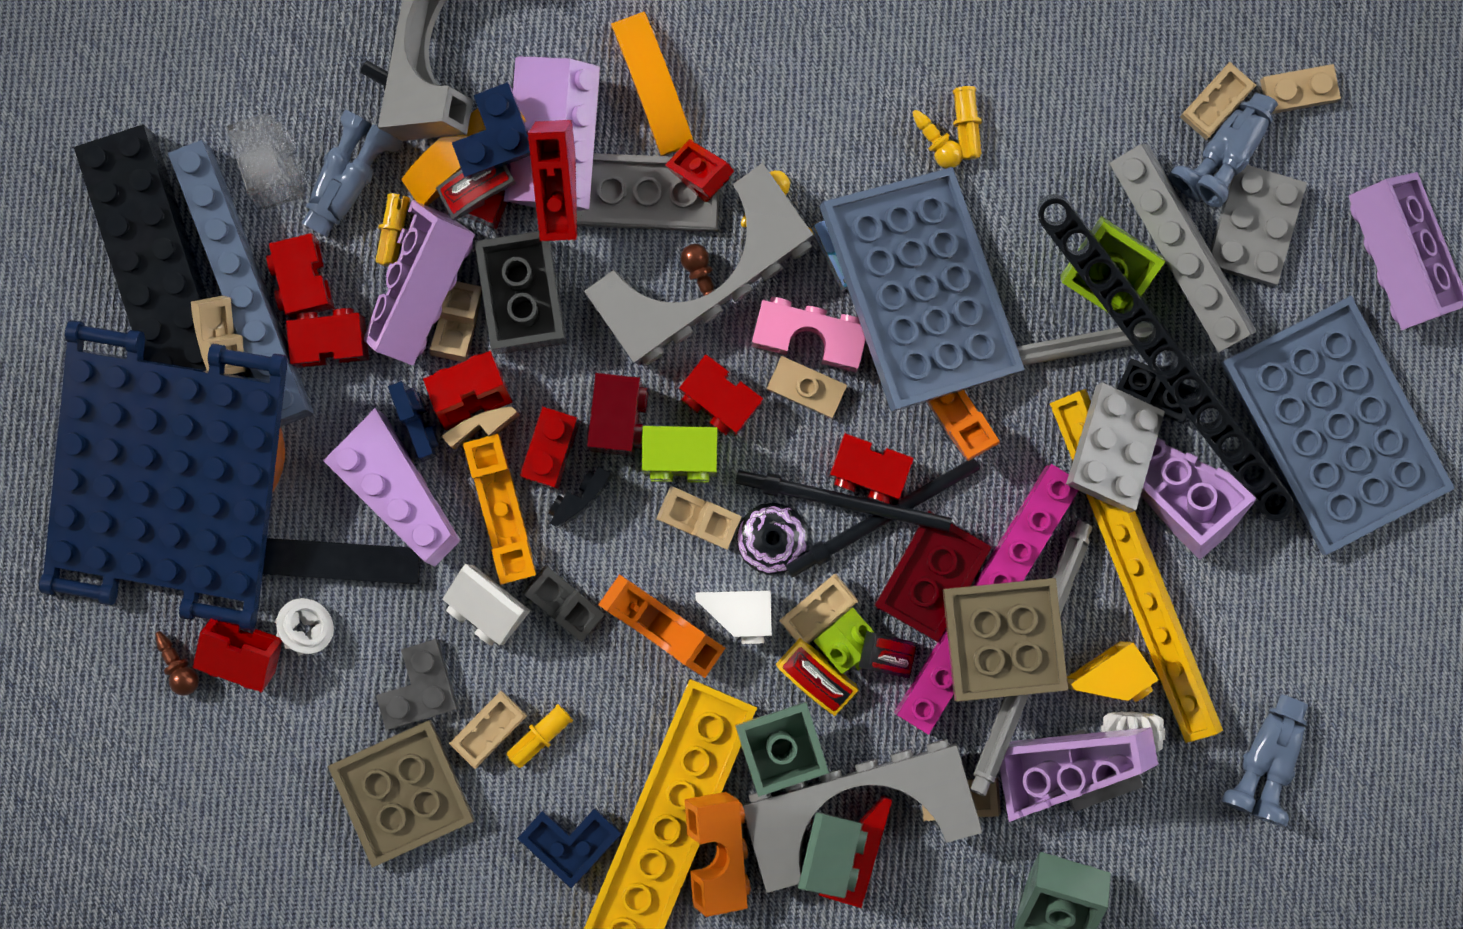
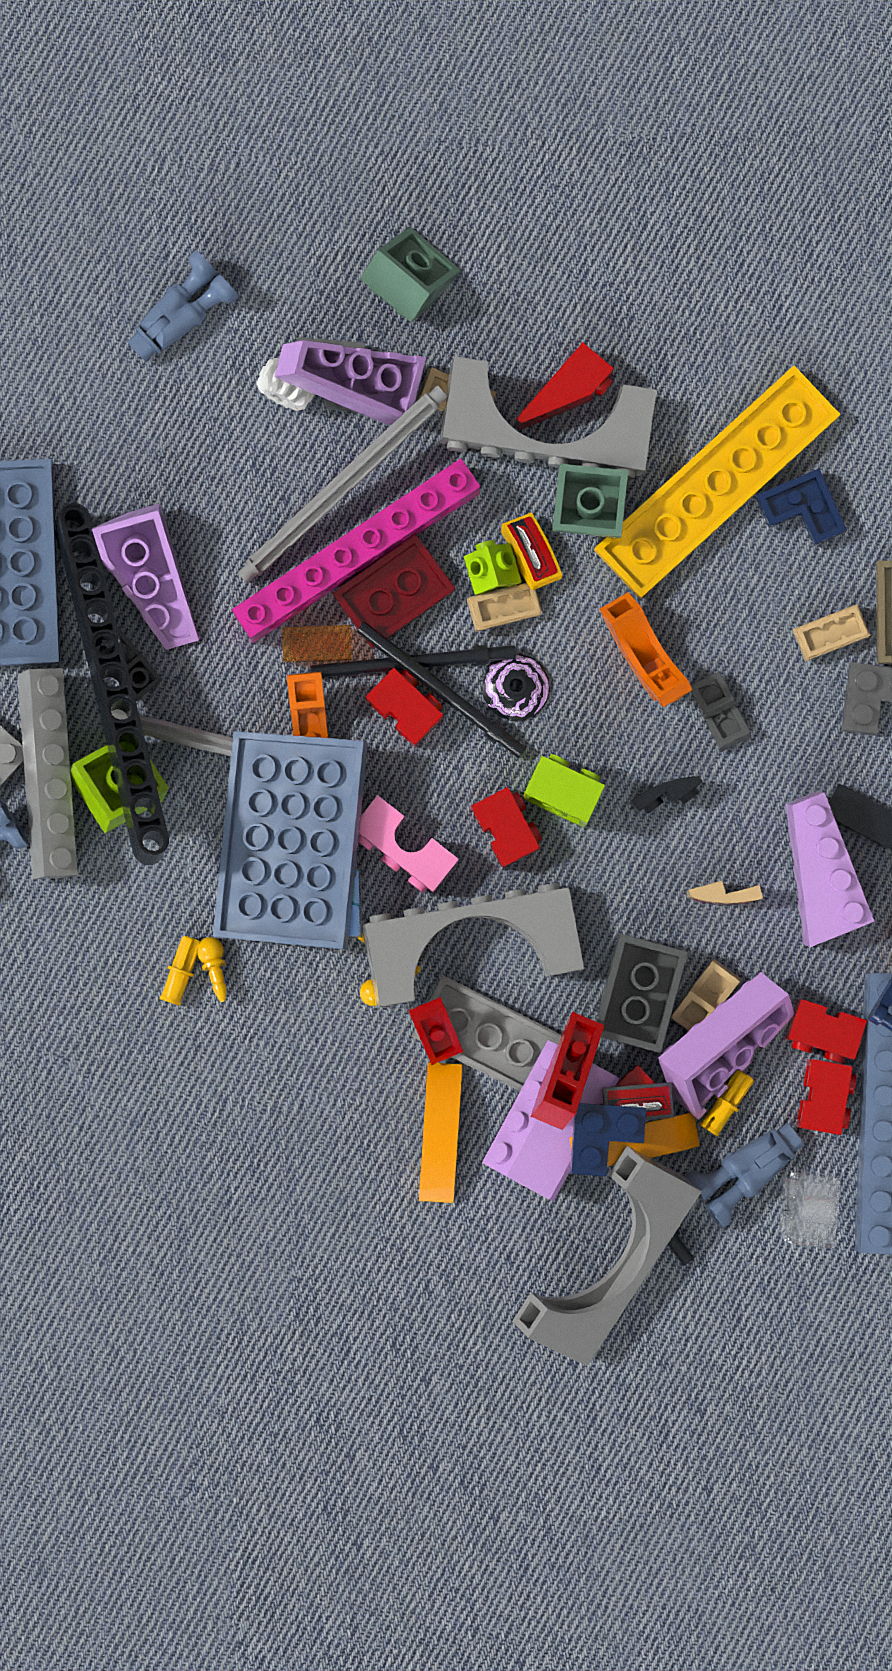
camera: 155 degrees left, 0 degrees up
(410, 409) = (780, 934): dark blue plate -> none
(466, 389) = (722, 931): red brick -> none
(485, 605) = (787, 736): white slope -> none
(500, 508) = (739, 814): light orange slope -> none
(539, 736) = (790, 607): yellow axle -> none
(550, 448) = (673, 847): red brick -> none
(616, 414) = (604, 848): dark red brick -> none
(695, 260) = (474, 955): copper bar -> none
(698, 517) = (571, 732): tan slope -> none
(723, 883) = (689, 415): orange arch -> none
(740, 612) = (574, 632): white slope -> none
(806, 387) = (427, 802): tan plate -> none
(831, 855) = (589, 393): sand green slope -> none
(887, 654) = (464, 540): slope -> none
(983, 491) = (316, 643): none -> clear orange plate
(1005, 639) = (361, 505): dark tan plate -> none
(1115, 447) = (188, 627): light grey plate -> none
(1116, 674) = (283, 438): yellow slope -> none
(1146, 594) = (216, 523): yellow plate -> none

